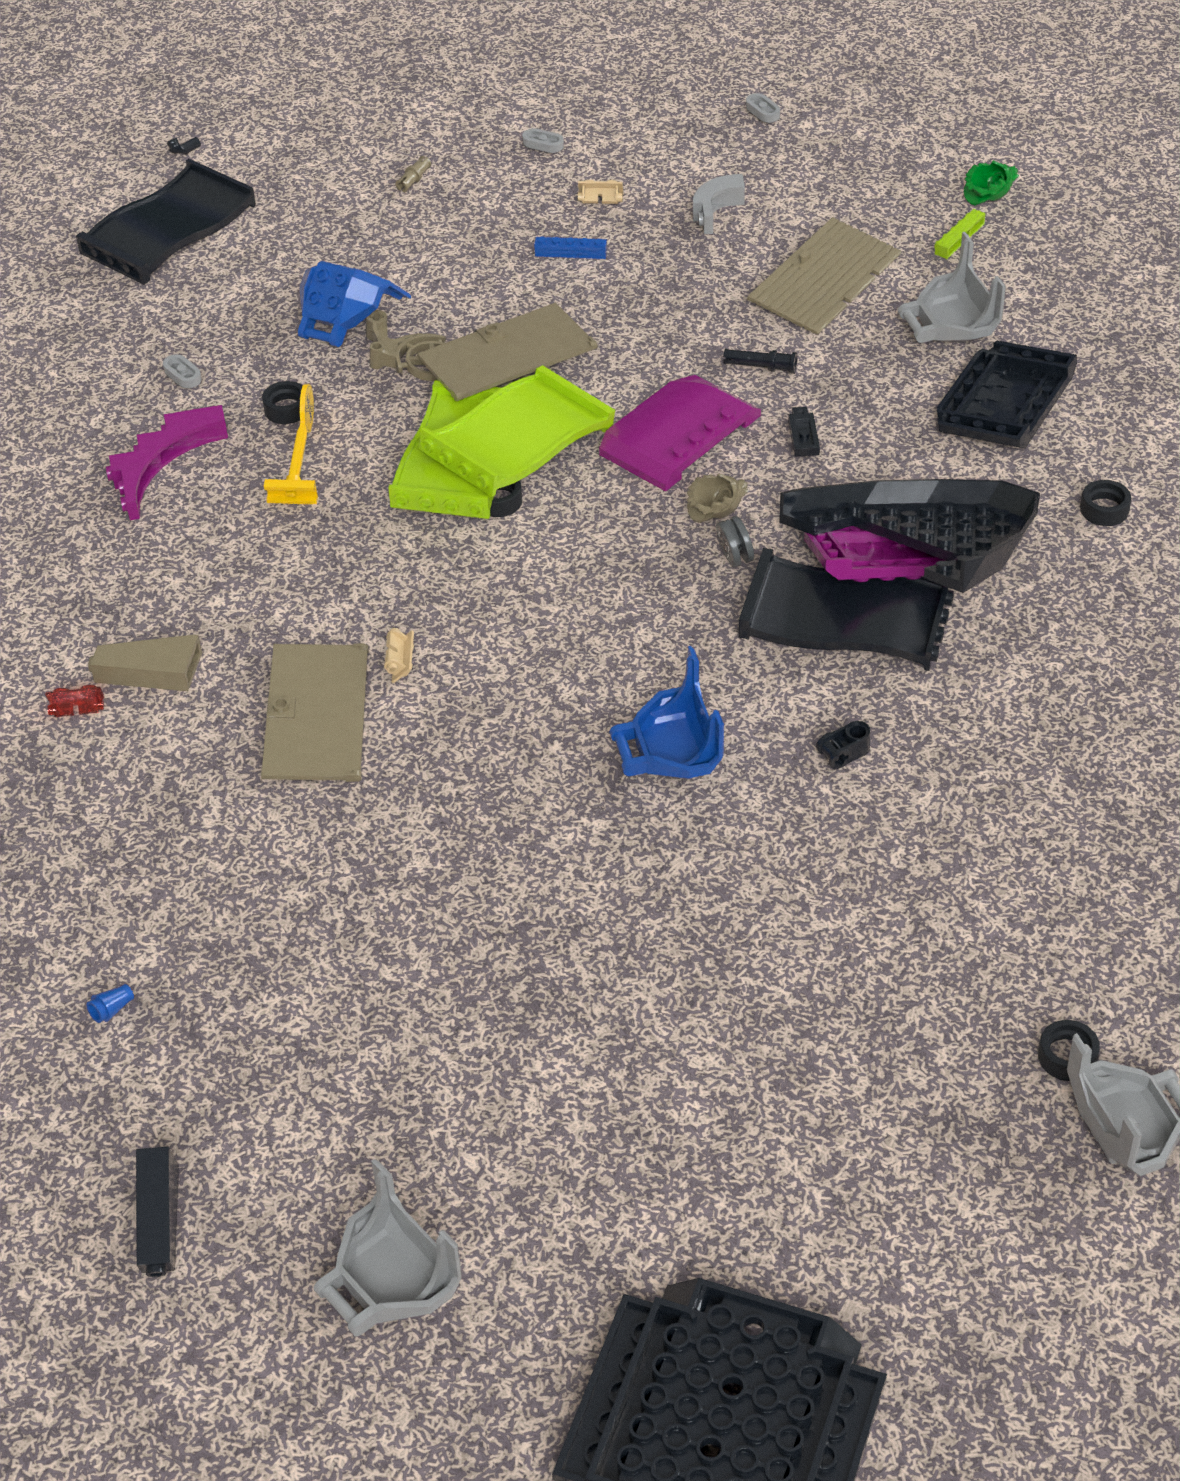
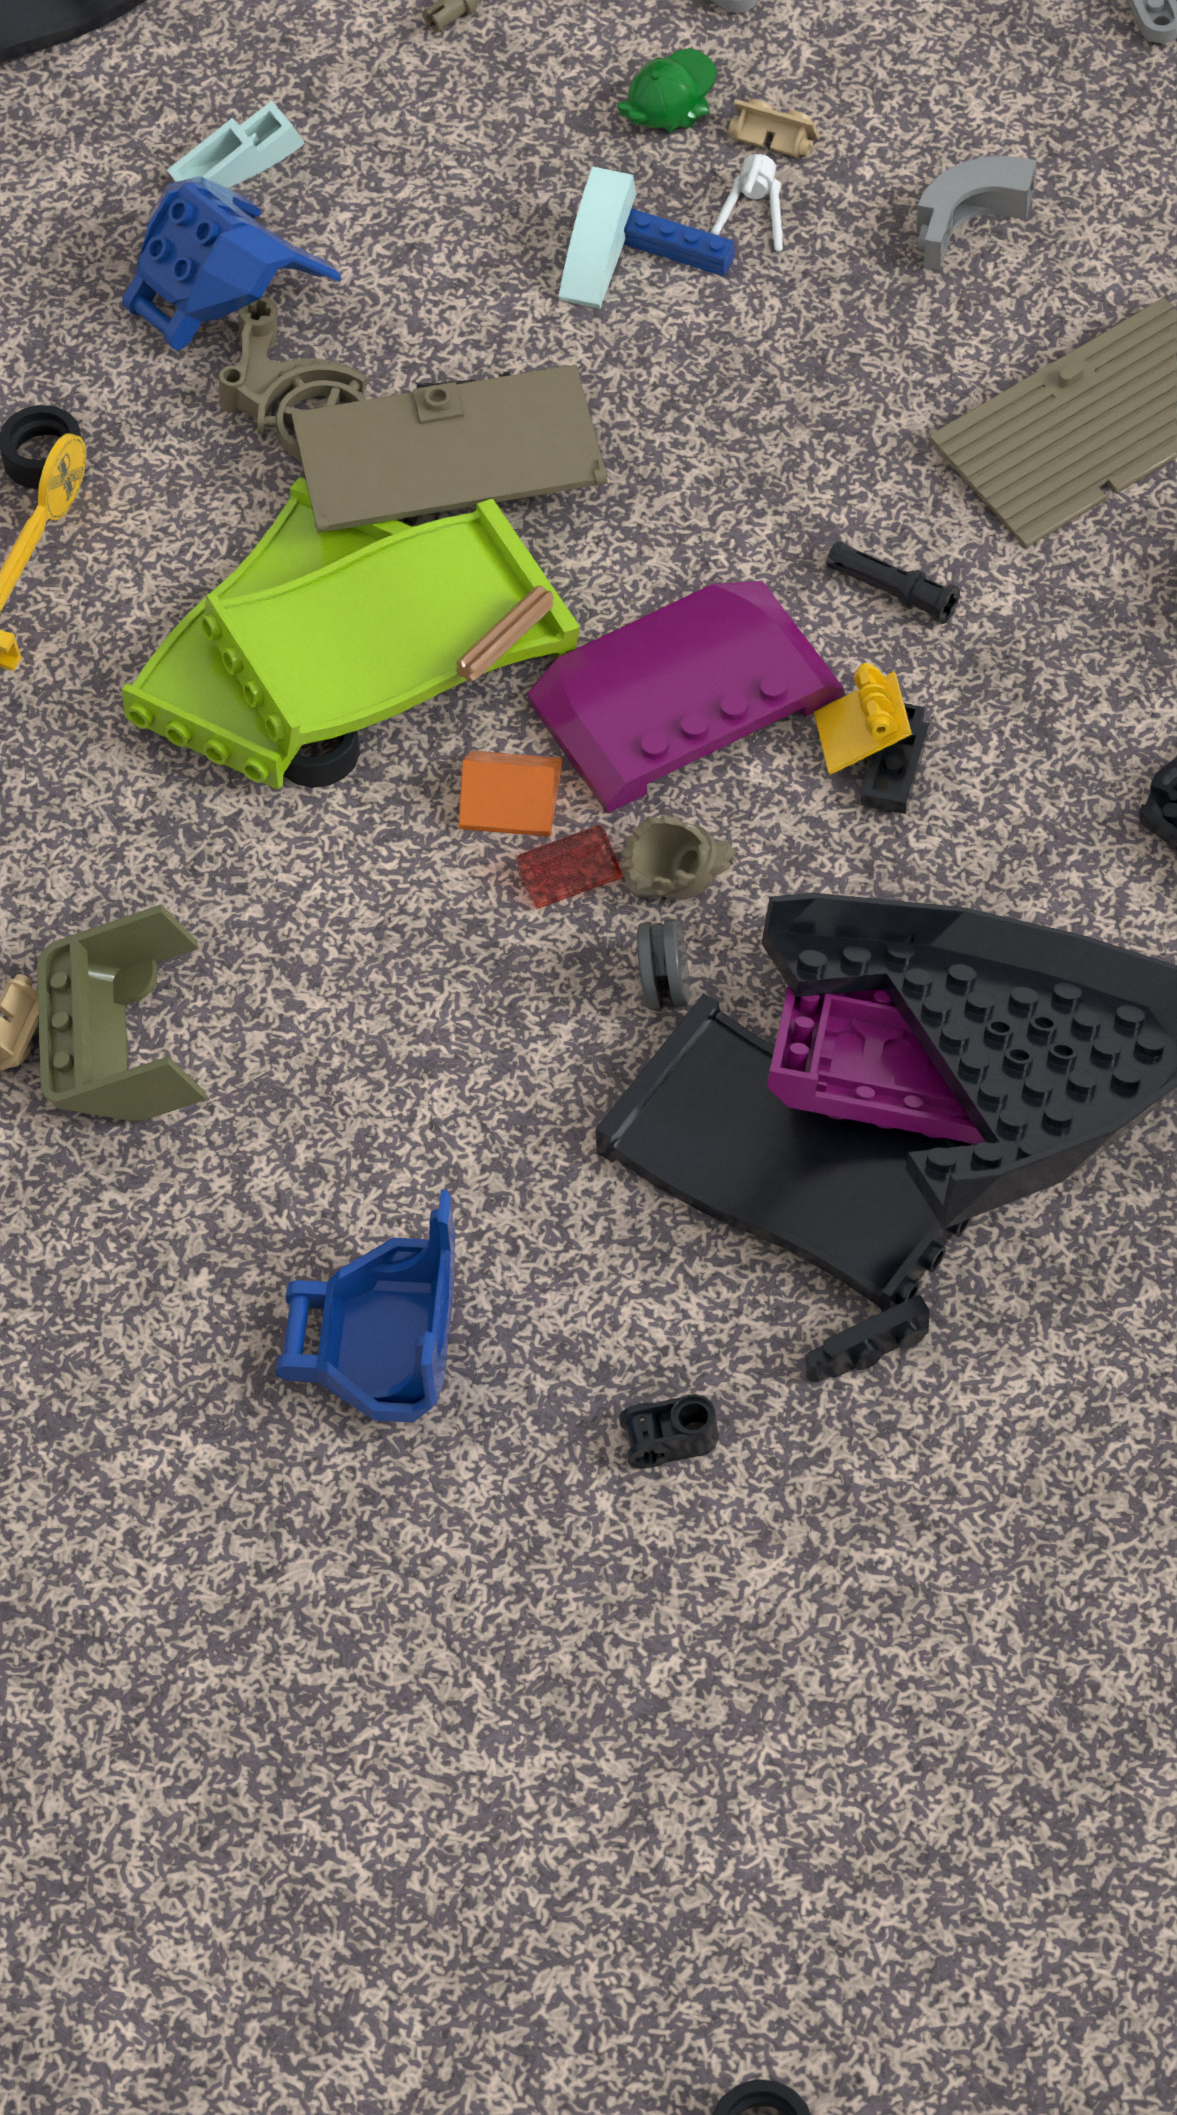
camera: 20 degrees right, 10 degrees up
(338, 251) = (240, 151): none -> light aqua slope
(439, 615) = (83, 1018): none -> olive windscreen
(536, 251) = (597, 237): none -> light aqua slope
(541, 186) = (670, 91): none -> green hair
(581, 417) = (504, 633): none -> medium nougat axle
(604, 215) = (755, 182): none -> white plant
(612, 492) = (509, 793): none -> orange slope
(659, 516) = (568, 866): none -> clear red slope
(779, 417) = (863, 719): none -> yellow hinge
(928, 678) = (869, 1340): none -> black hinge

